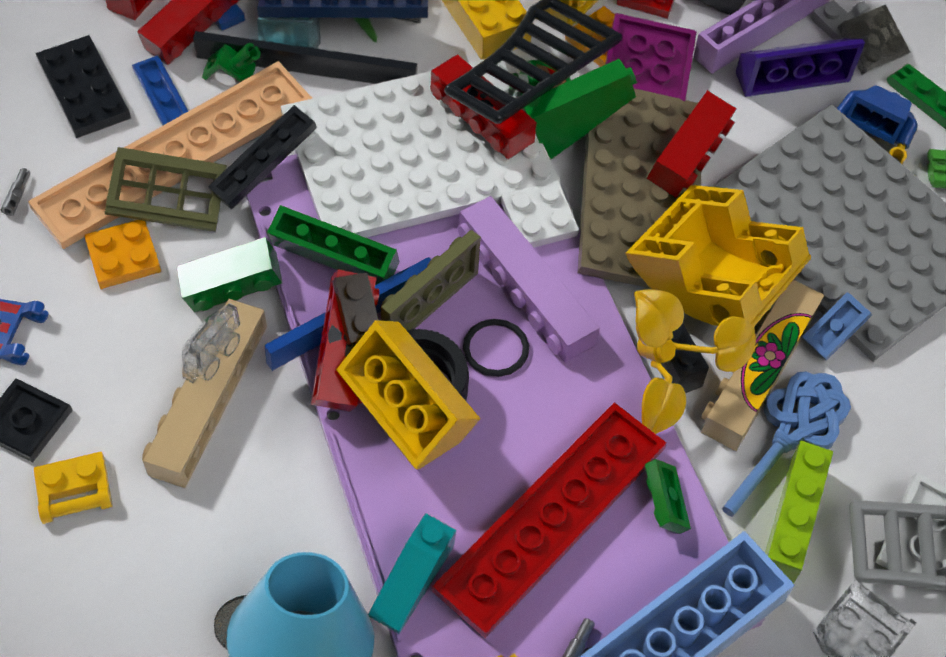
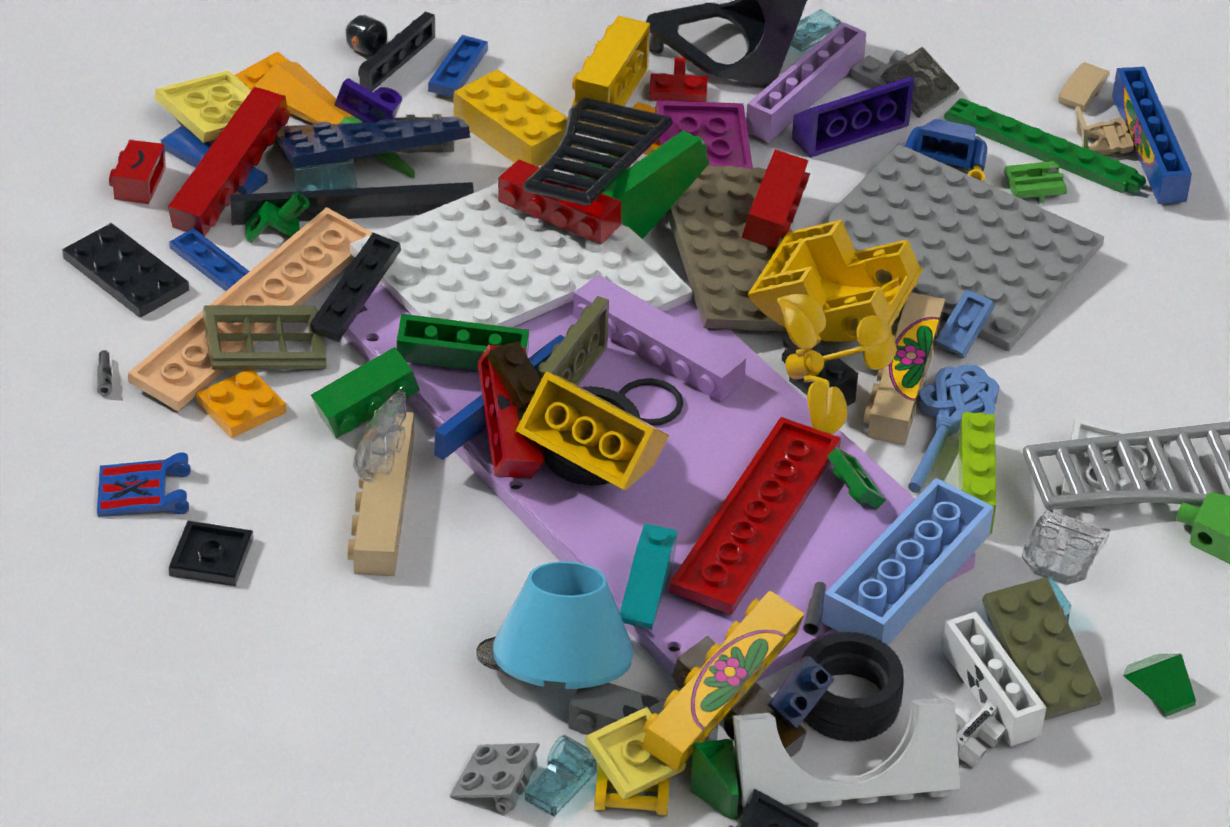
camera: 15 degrees left, 15 degrees down
(69, 479) = (286, 592): yellow plate -> none

